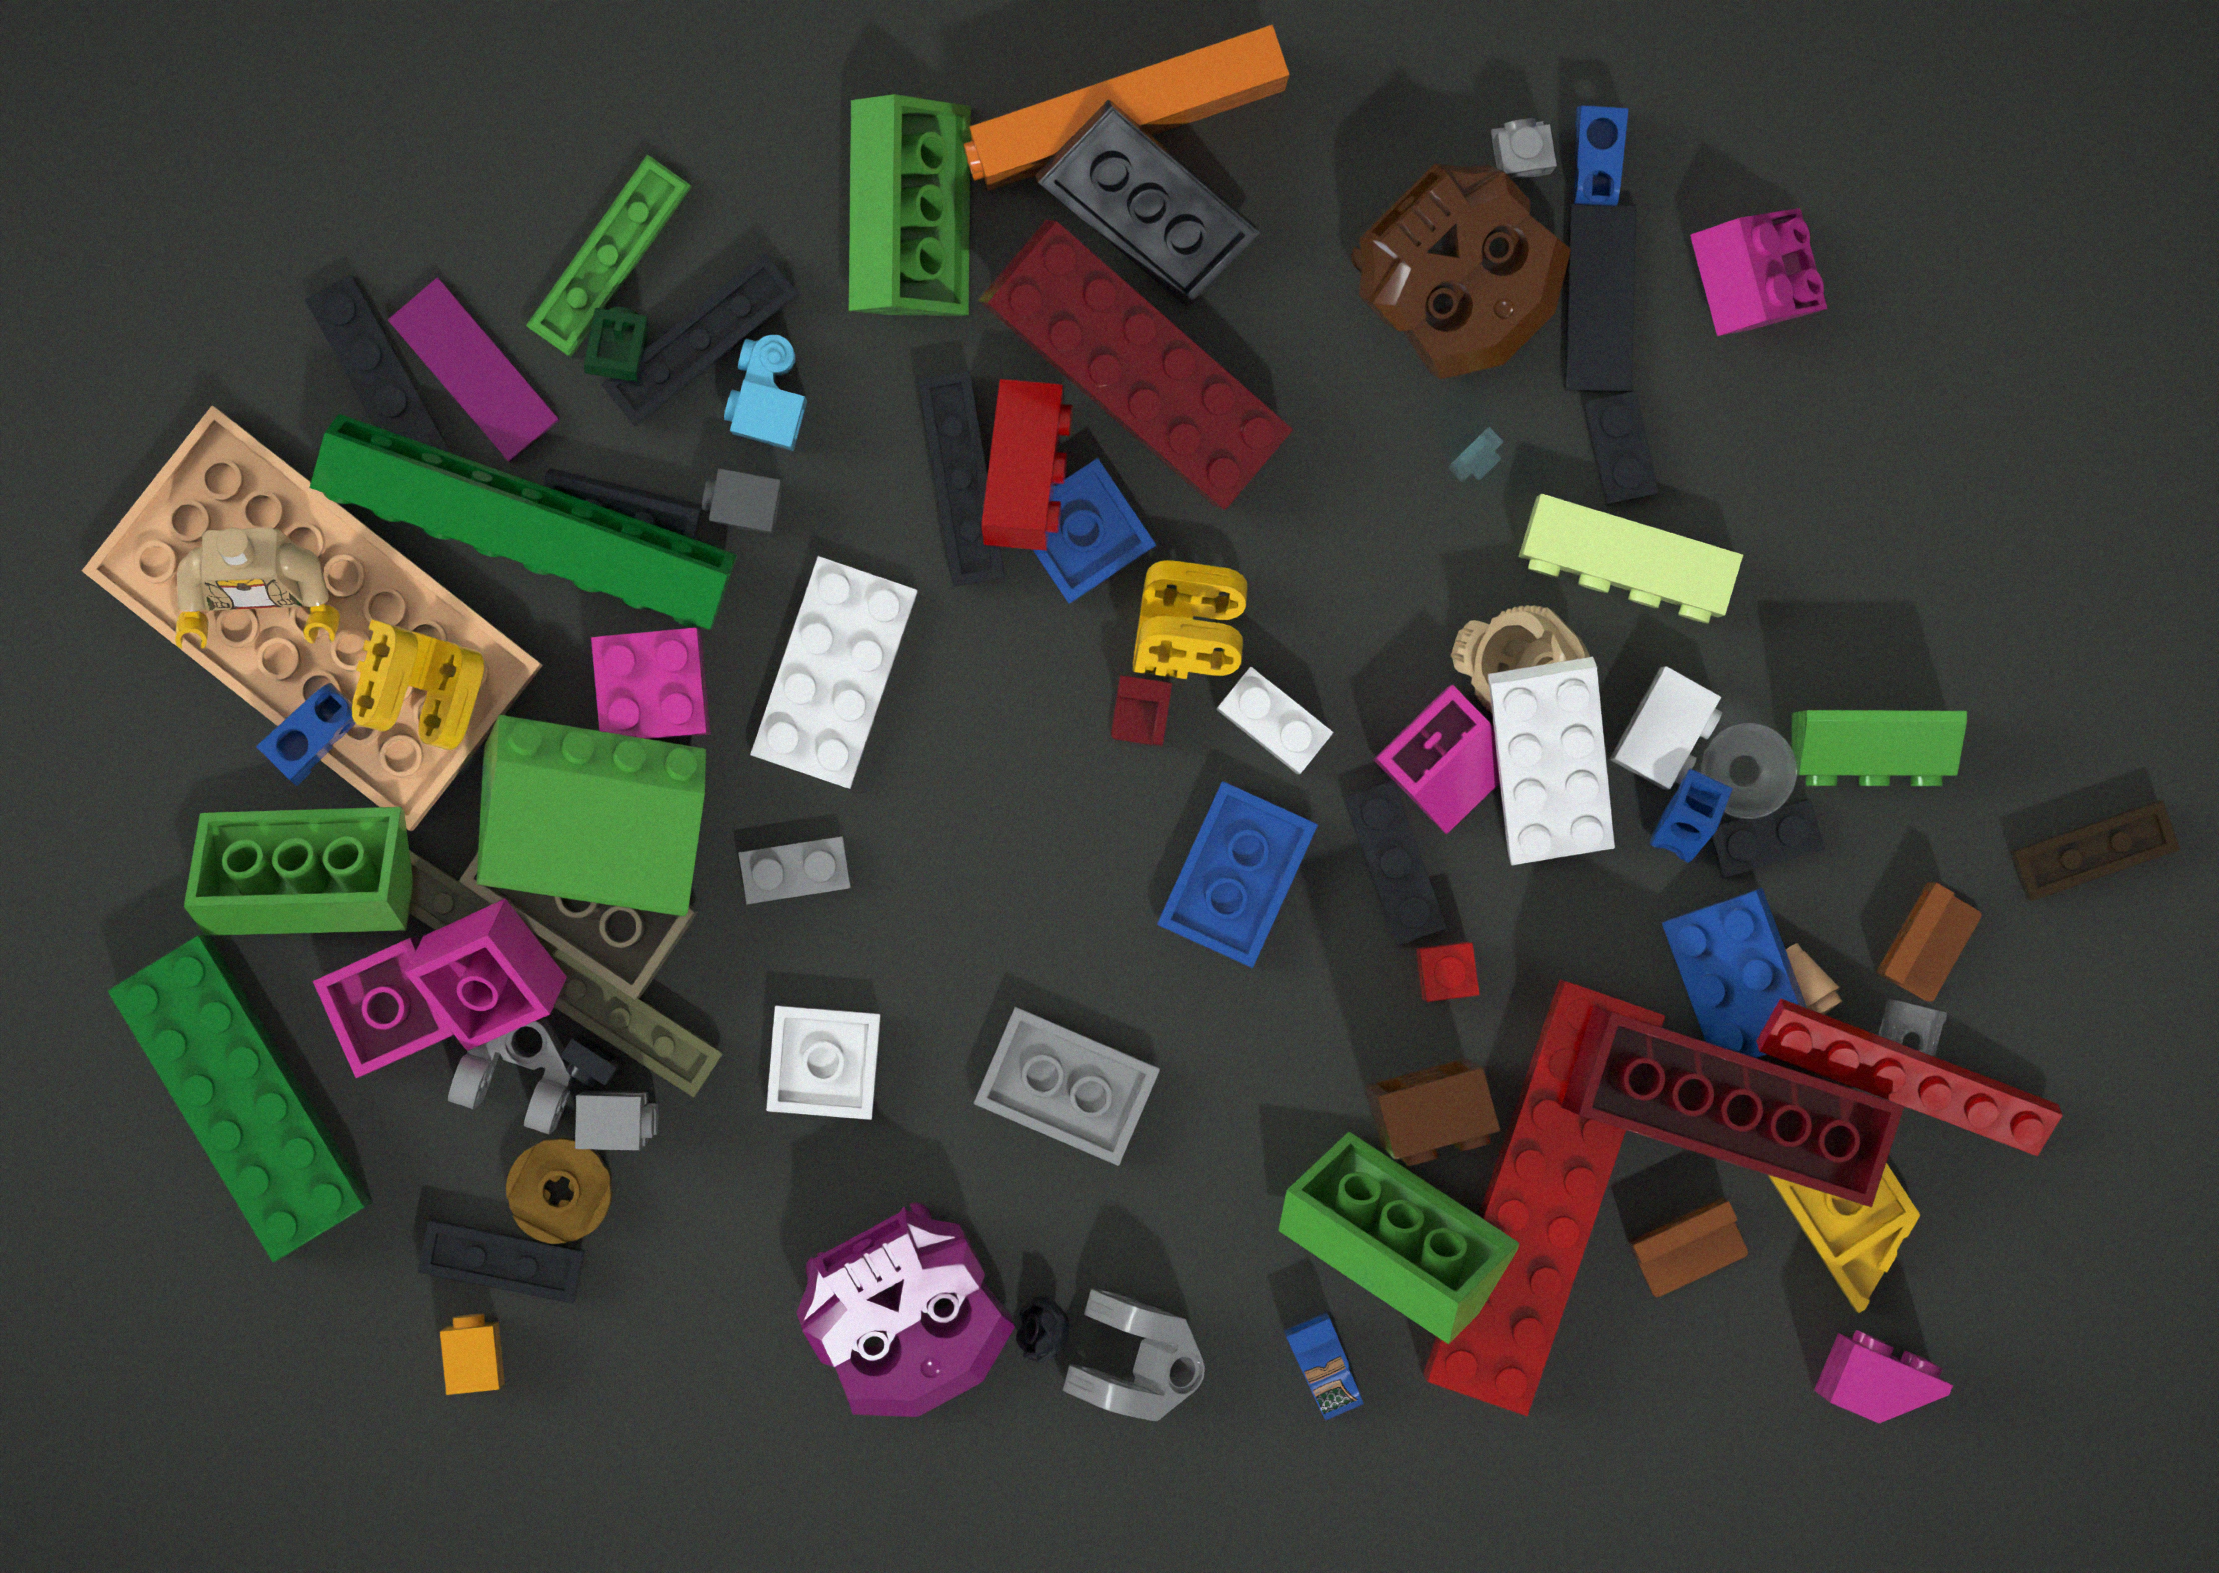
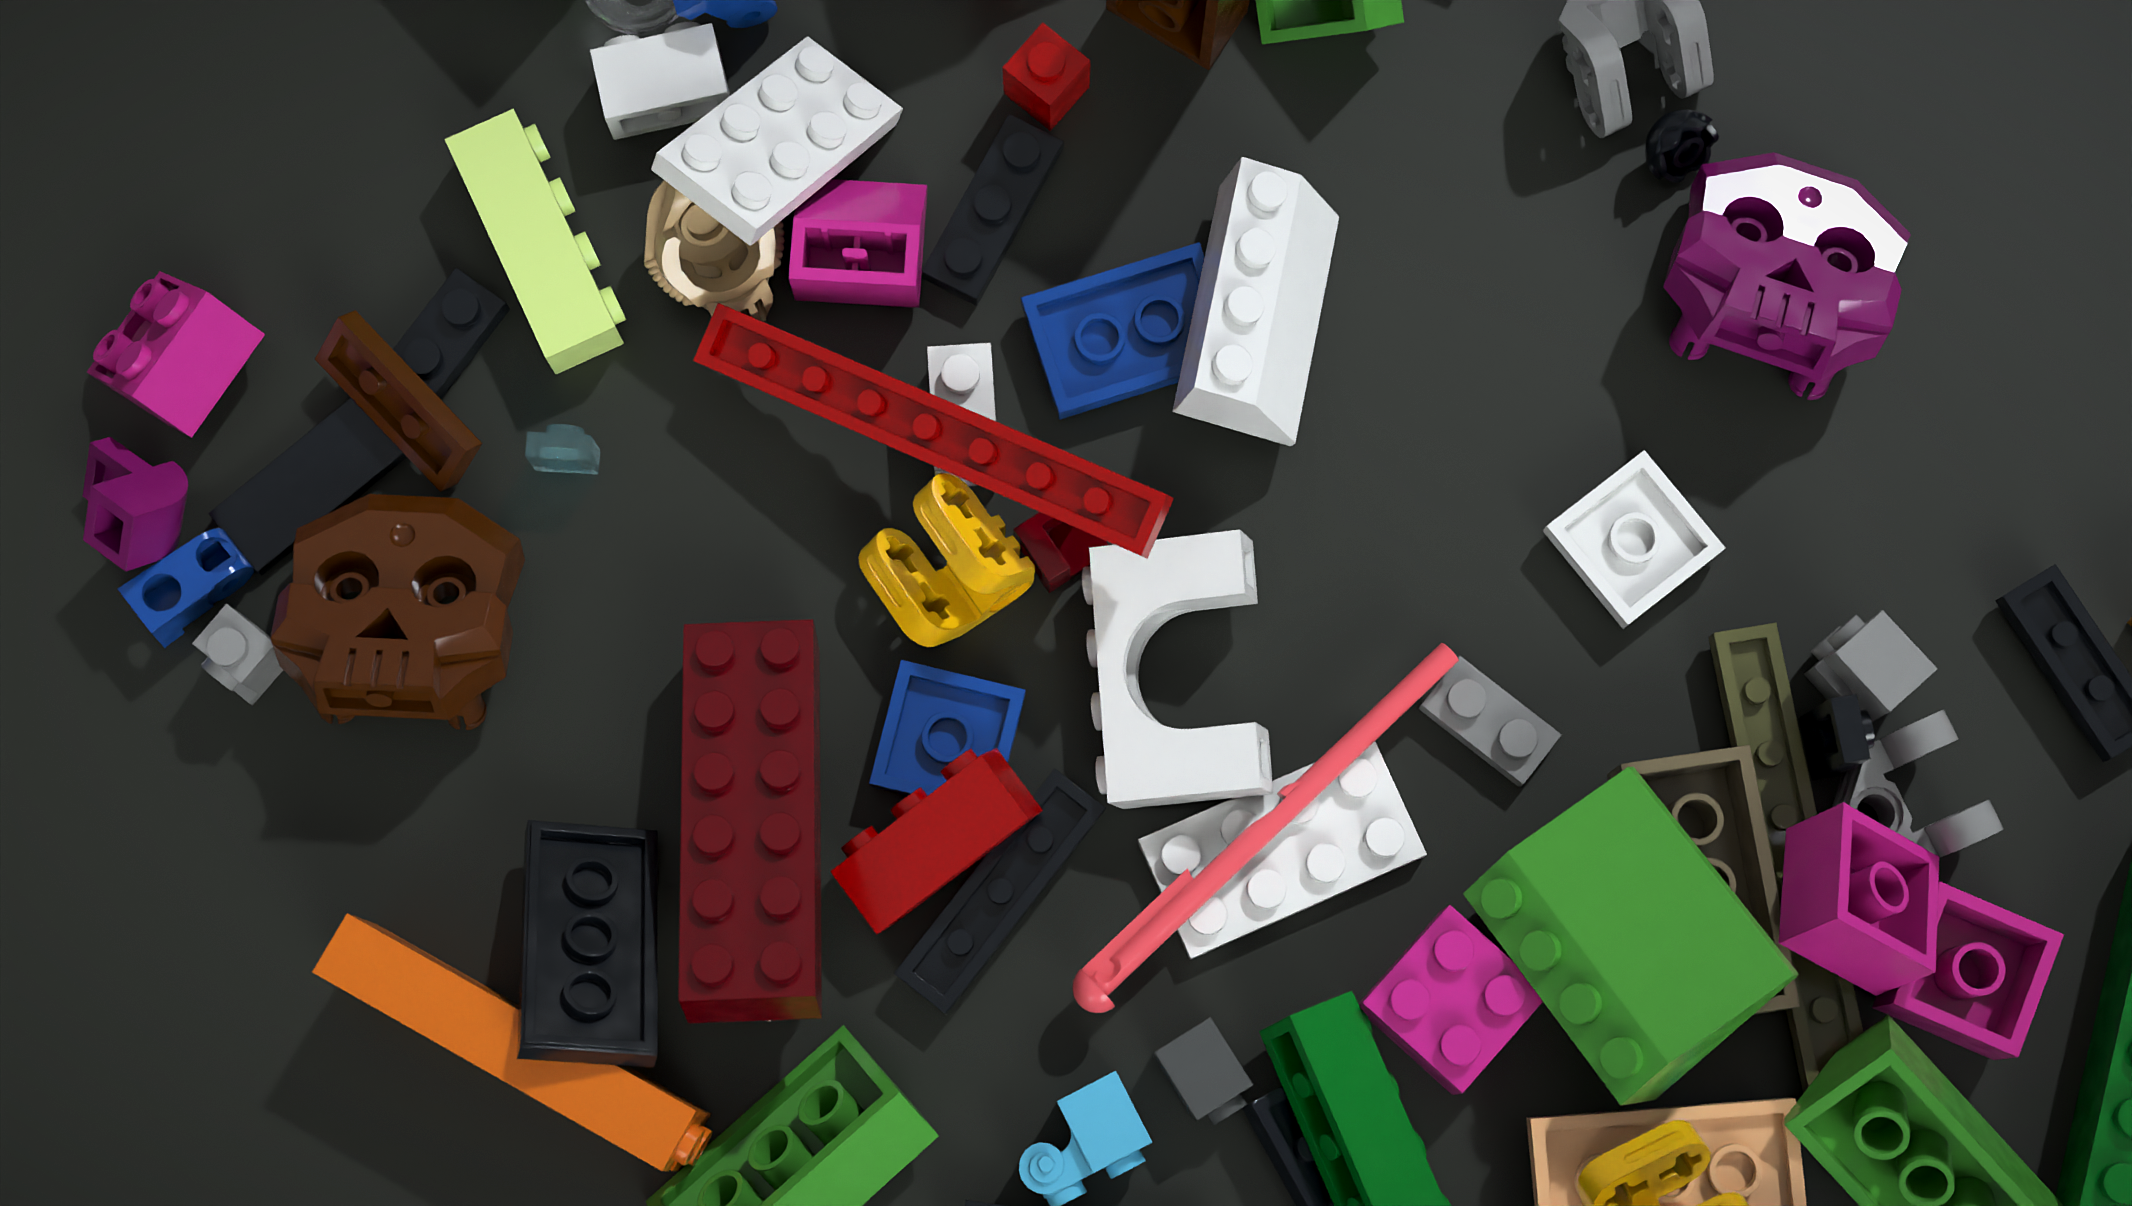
camera: 135 degrees left, 10 degrees down
(530, 1199) = (2007, 663): pearl gold plate -> none
(855, 585) = (1188, 894): none -> coral bar
(966, 639) = (1130, 601): none -> white arch
(1067, 1086) = (1451, 312): light grey plate -> none
(1177, 964) = (1258, 303): none -> white slope
(1274, 683) = (935, 430): none -> red plate
(1598, 380) = (398, 401): none -> reddish brown plate
(1674, 164) = (132, 507): none -> magenta brick

